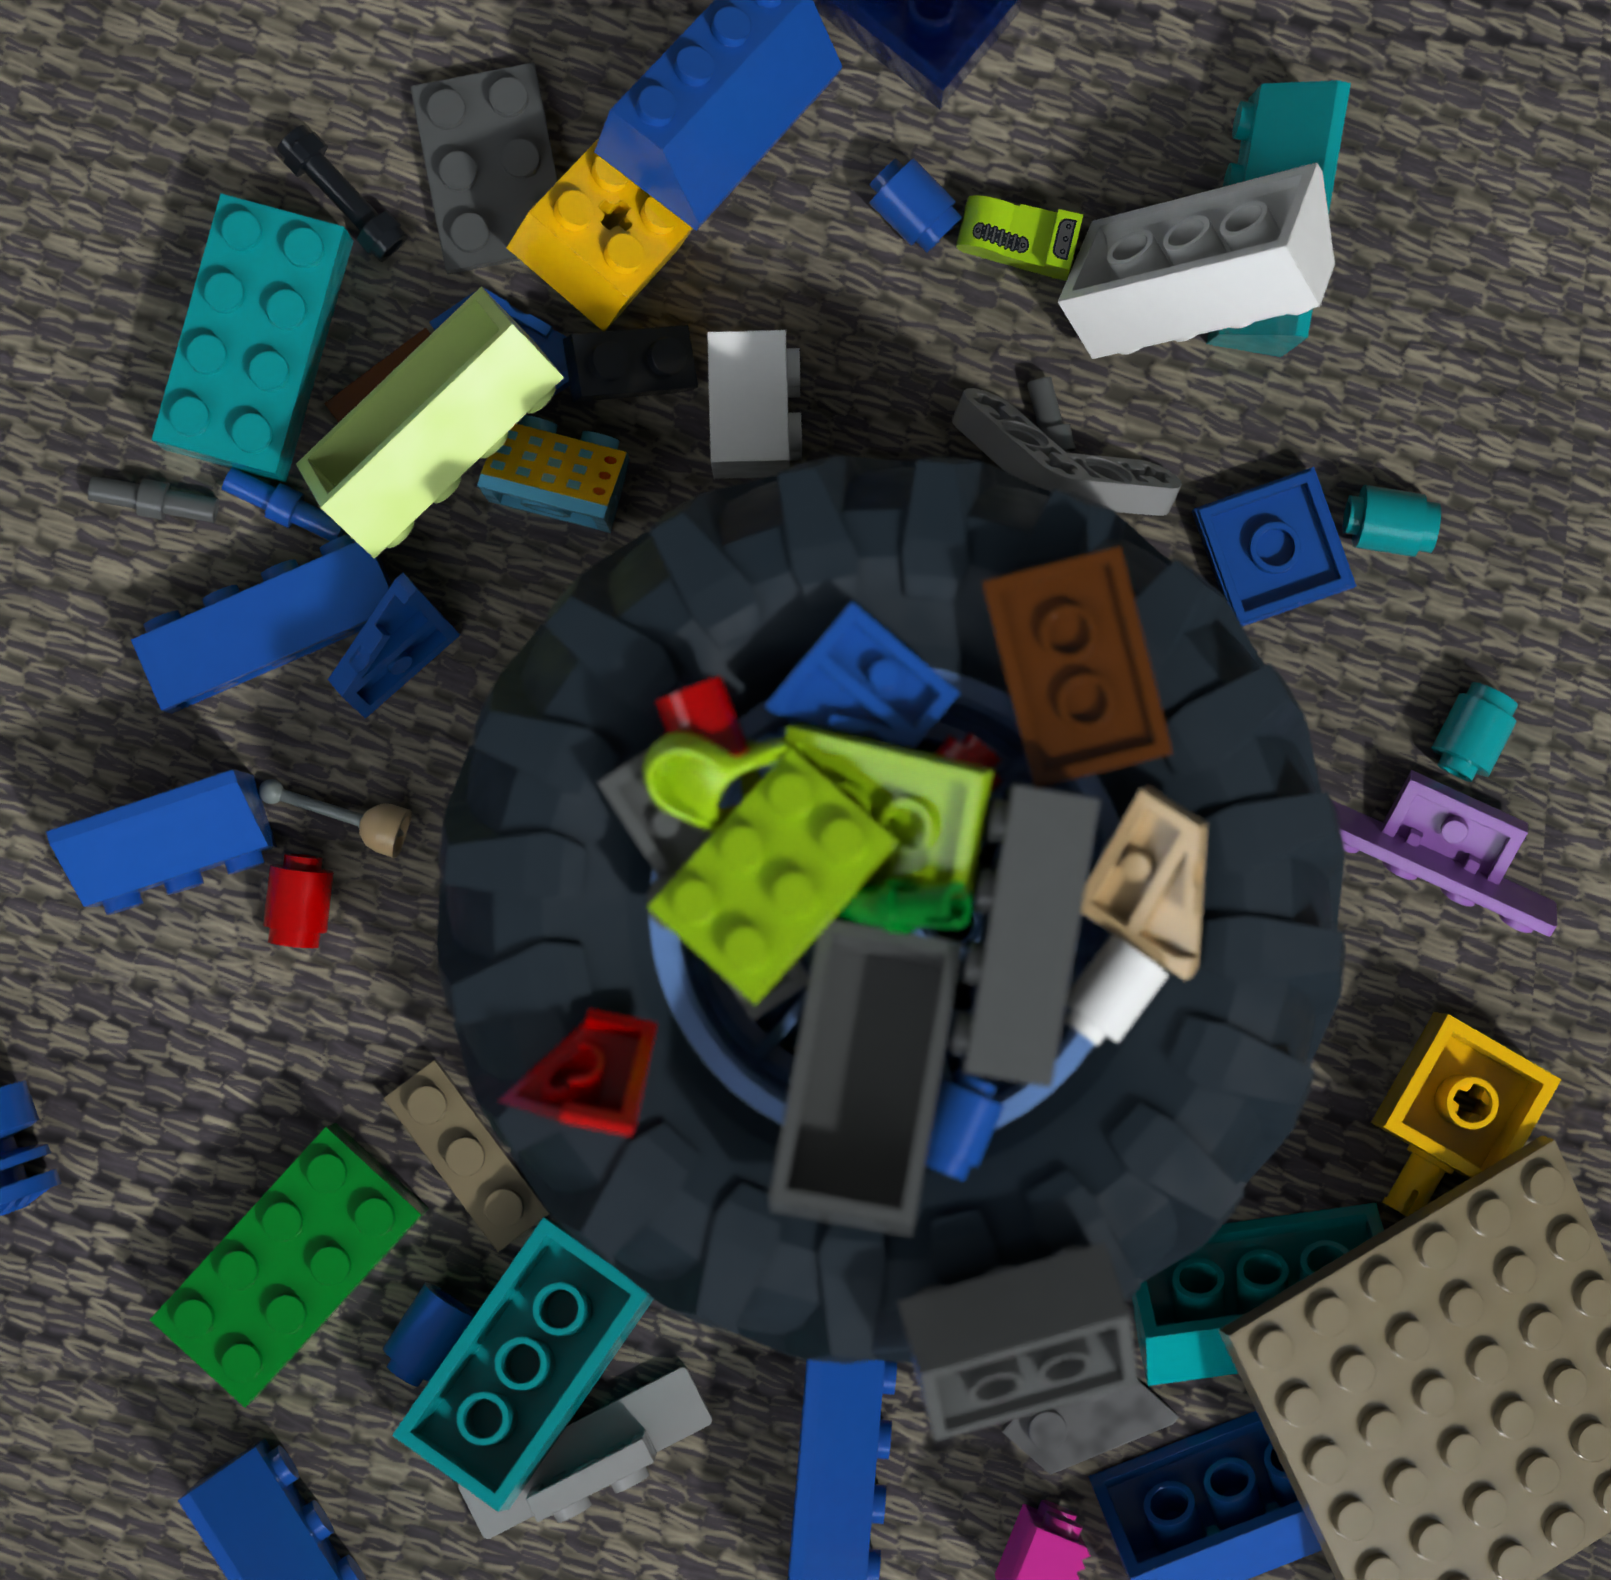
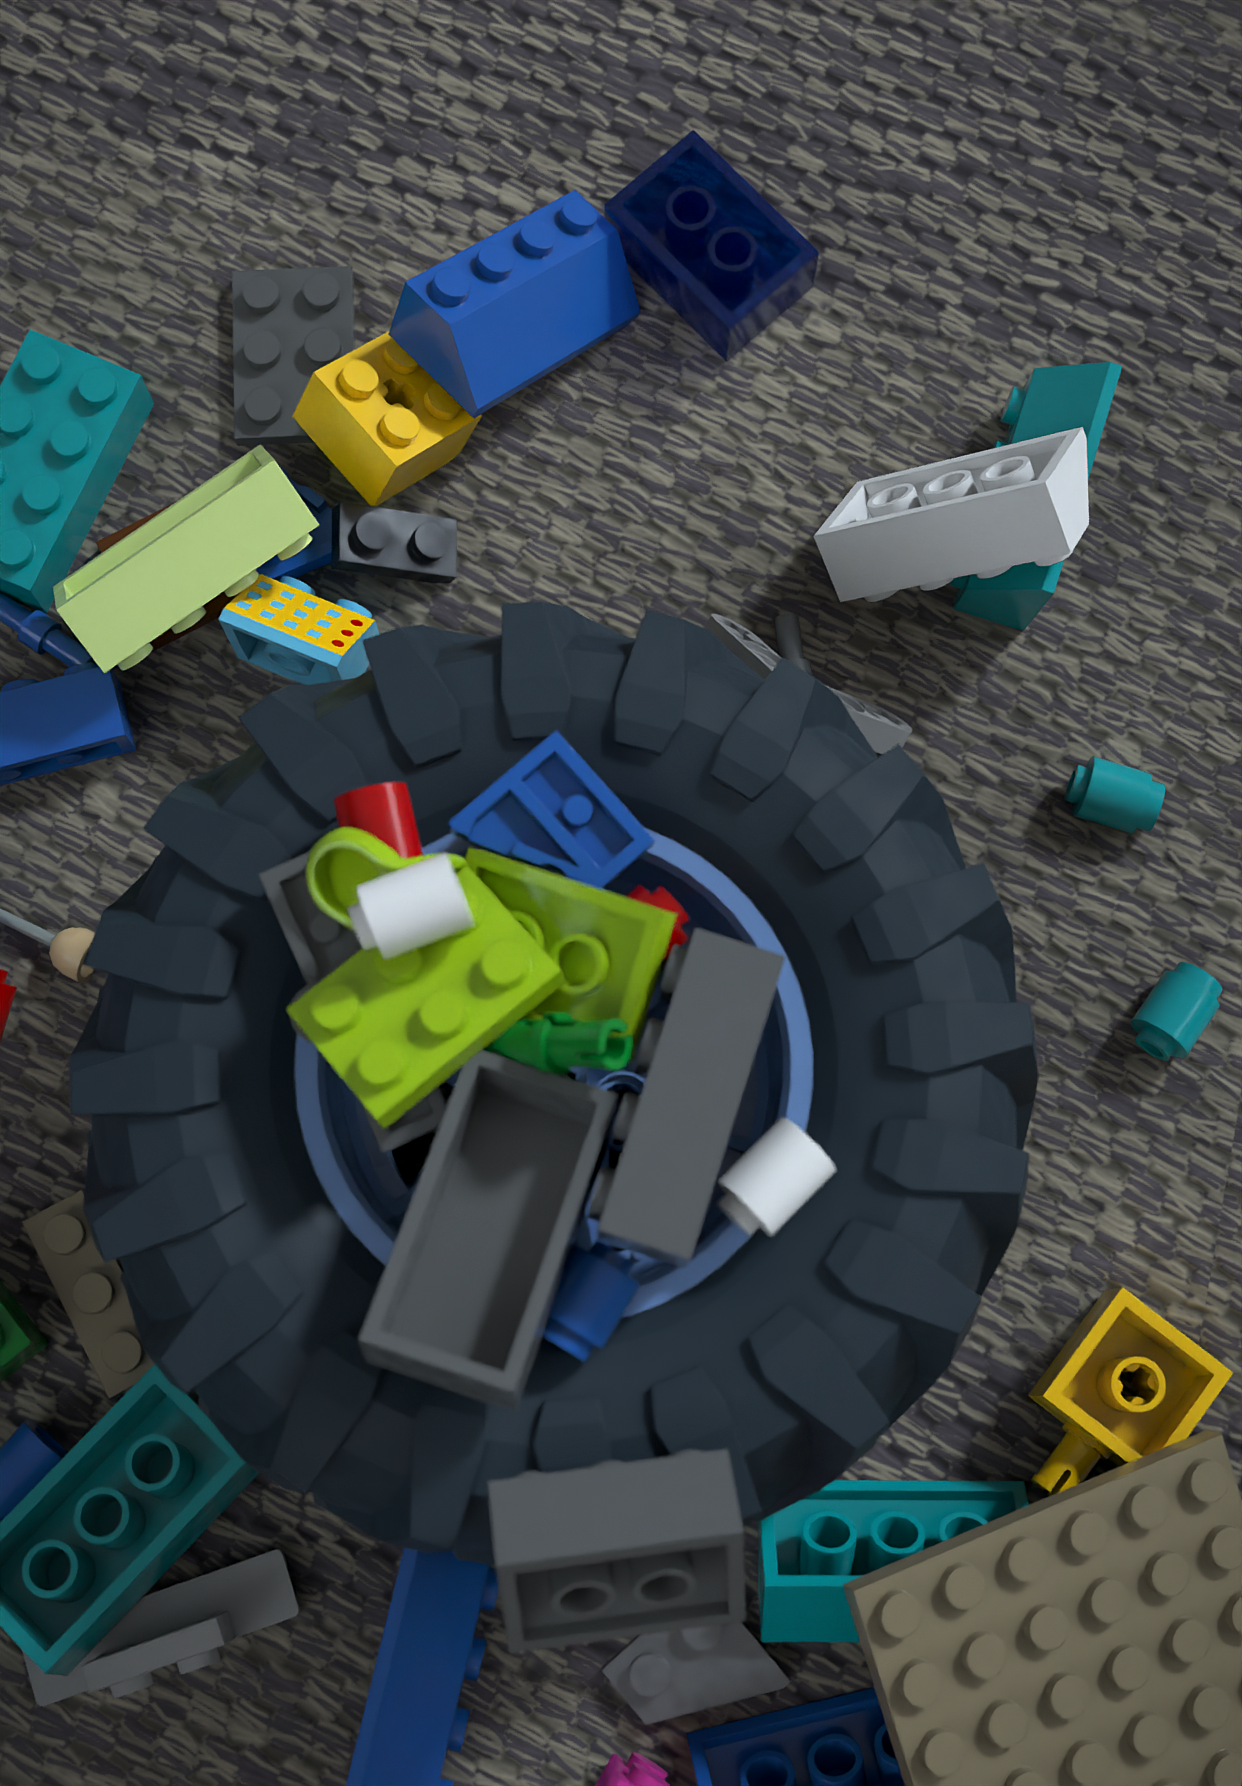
camera: 10 degrees right, 10 degrees down
(305, 153) = (123, 318): black bar -> none
(391, 647) = (113, 773): blue wing -> none
(592, 1075) = (204, 1184): red slope -> none
(749, 403) = (501, 562): white brick -> none
(751, 804) = (410, 907): none -> white brick
(914, 203) = (689, 438): blue brick -> none
(1020, 235) = (786, 480): lime leg -> none
(1077, 667) = (782, 829): reddish brown plate -> none
(1153, 882) = (832, 1067): tan wing -> none
(1274, 547) = (1002, 802): blue plate -> none
(1453, 845) = (1147, 1122): medium lavender bracket -> none

